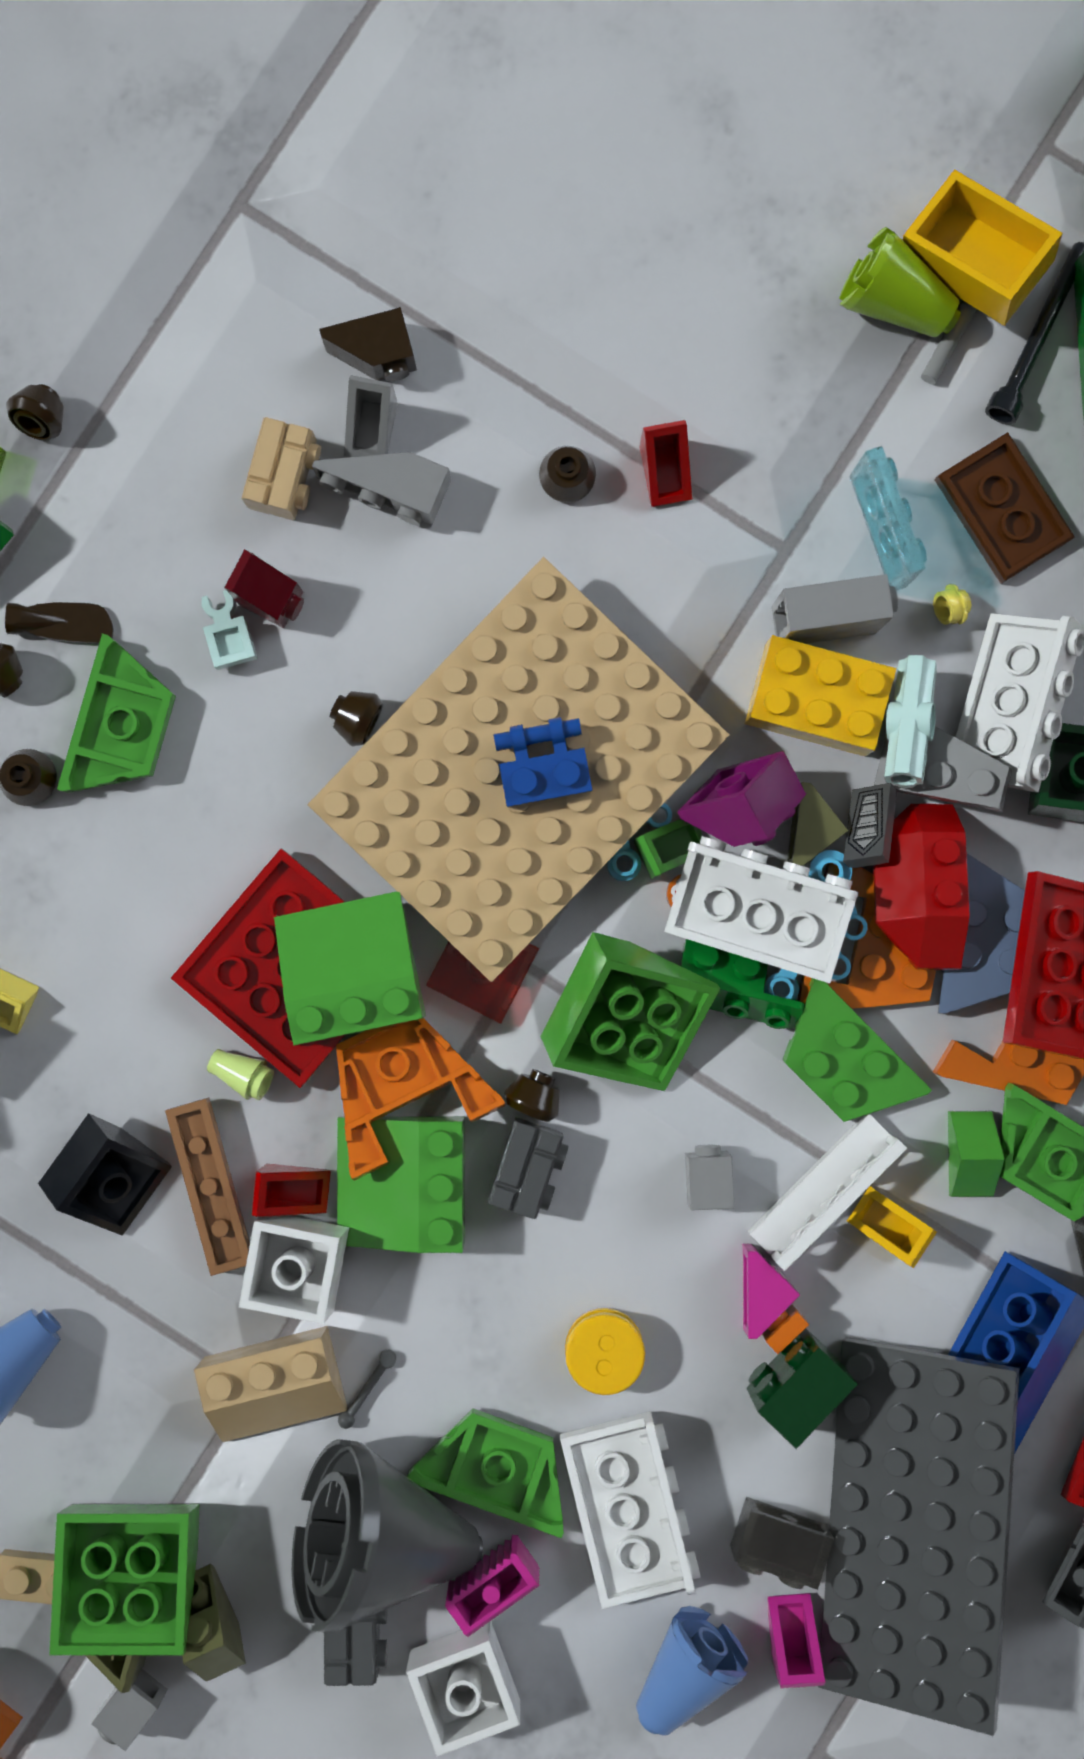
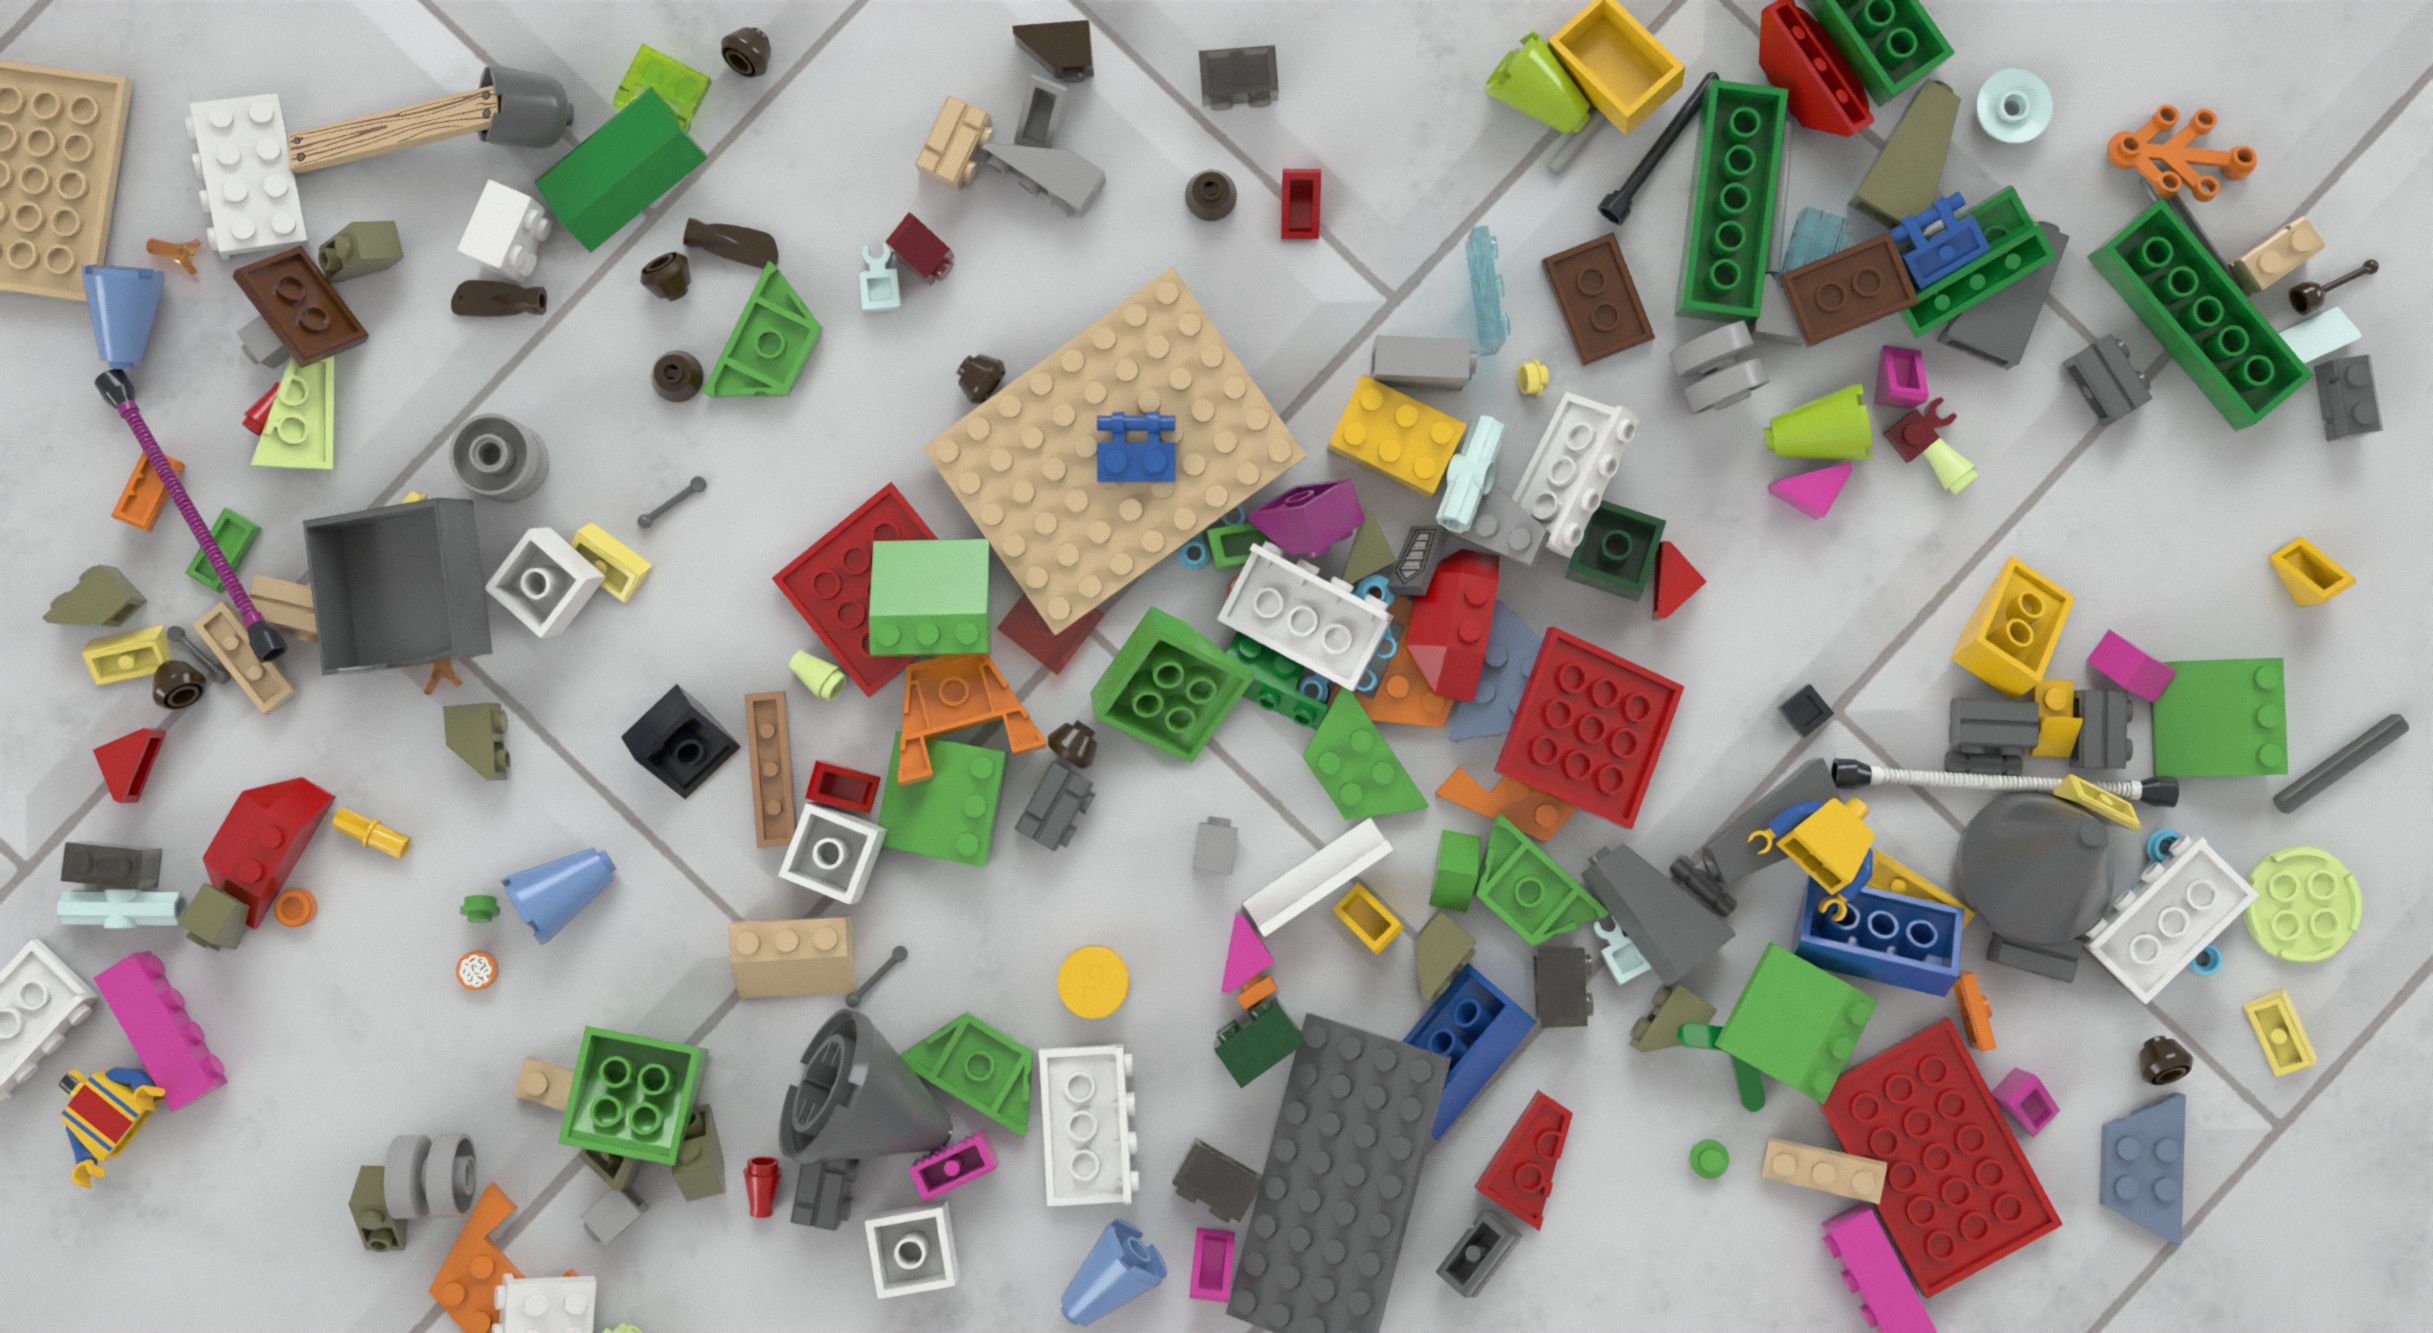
camera: 15 degrees right, 0 degrees up
(71, 890) = (697, 484): none -> dark grey hinge
(284, 1642) = (762, 1183): none -> red cone
(573, 340) = (1238, 77): none -> clear smoke brick
(973, 1249) = (1438, 951): none -> olive slope

